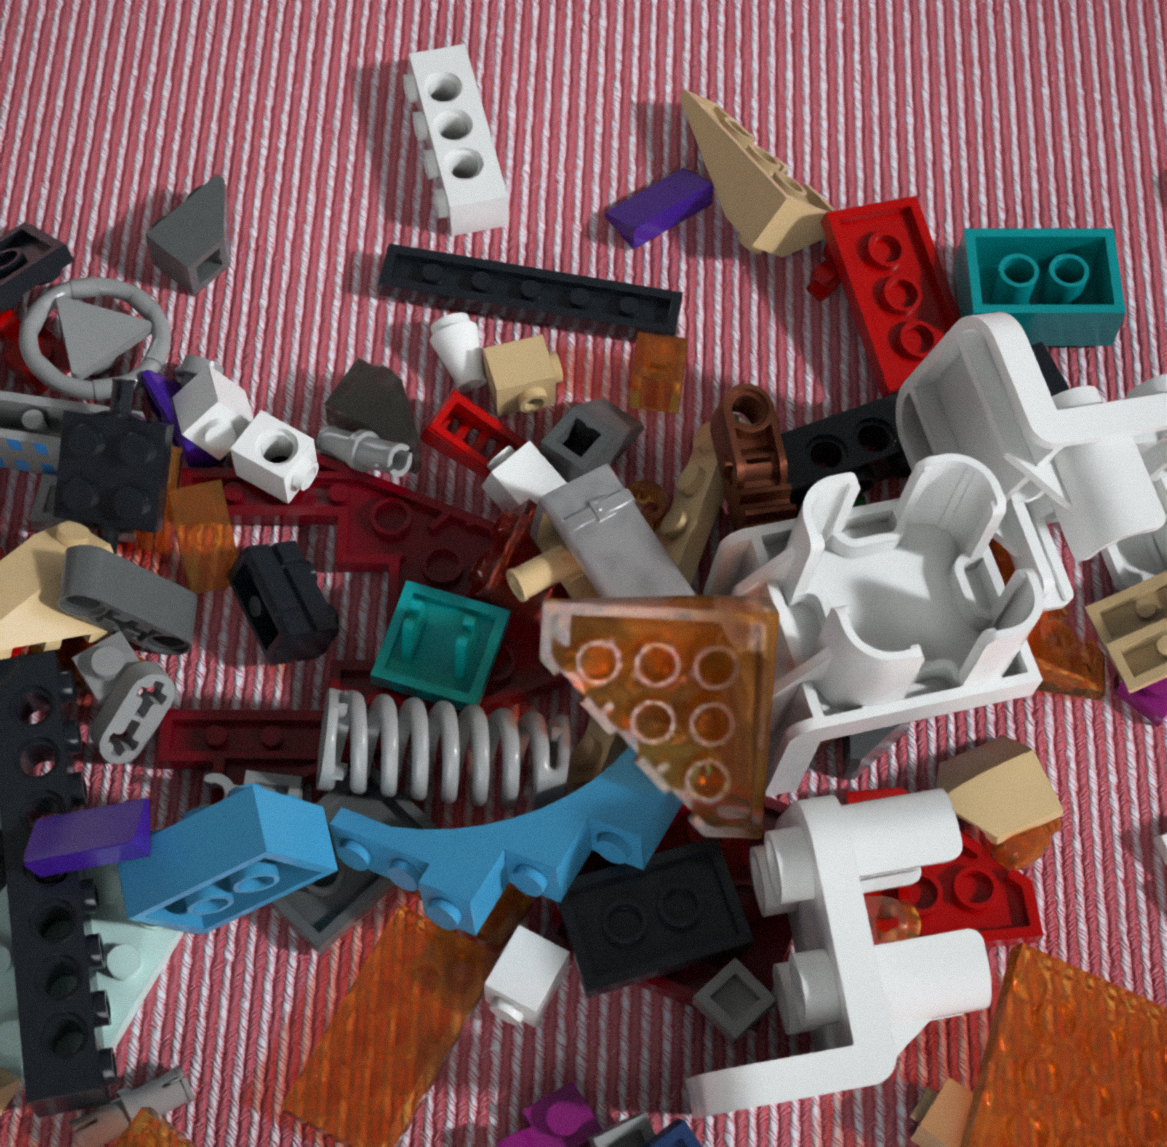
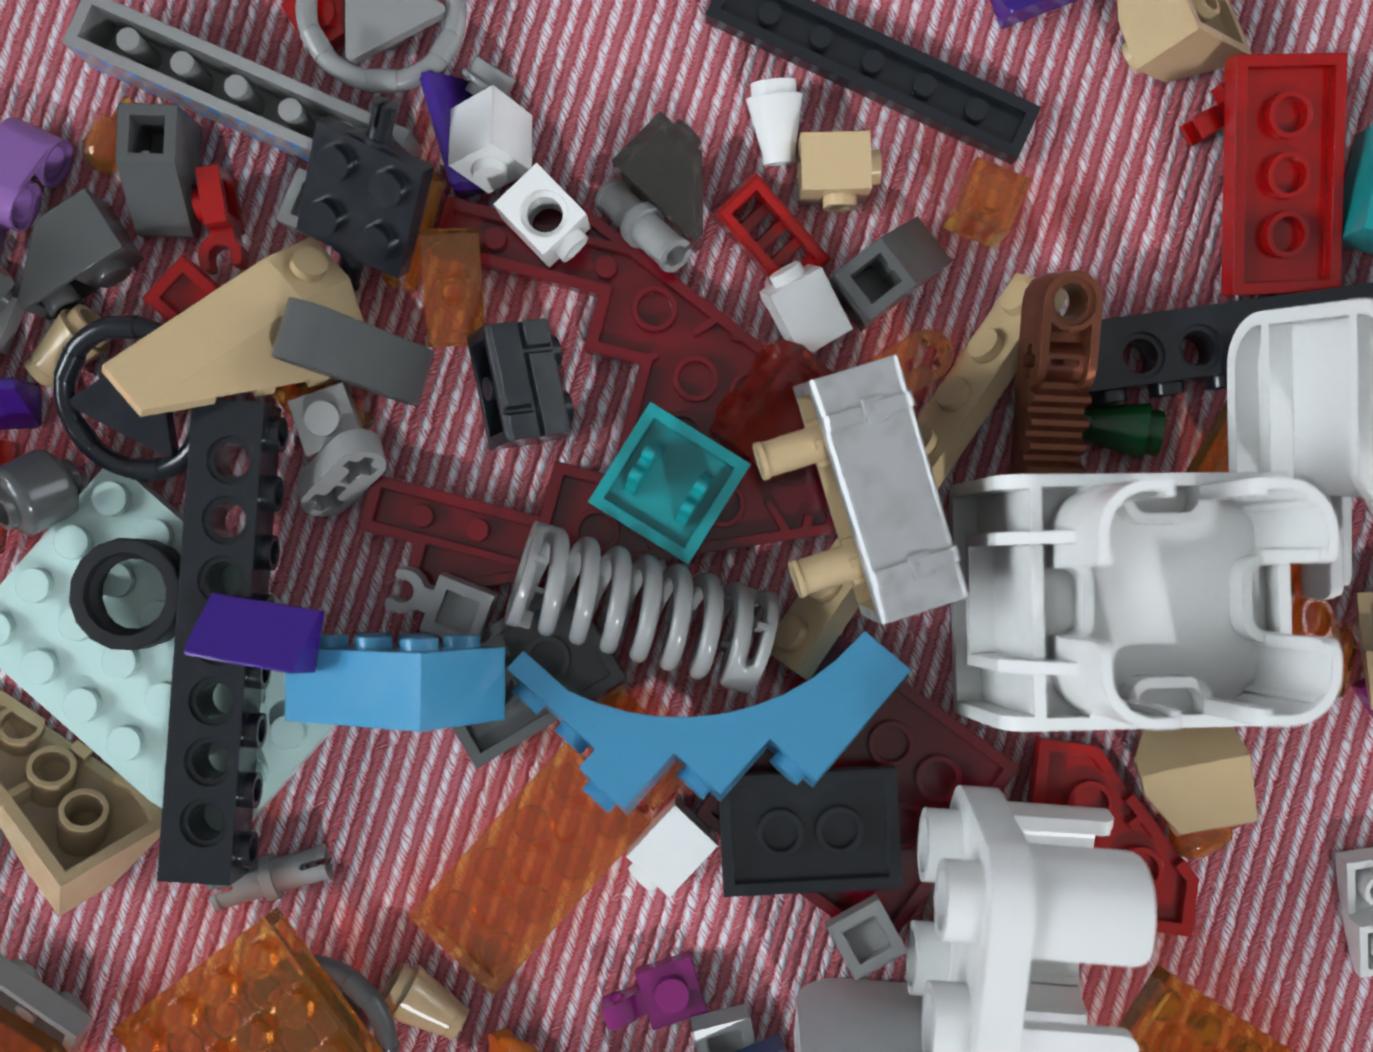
camera: 20 degrees right, 25 degrees up
(683, 688) = (904, 644): clear orange slope -> none

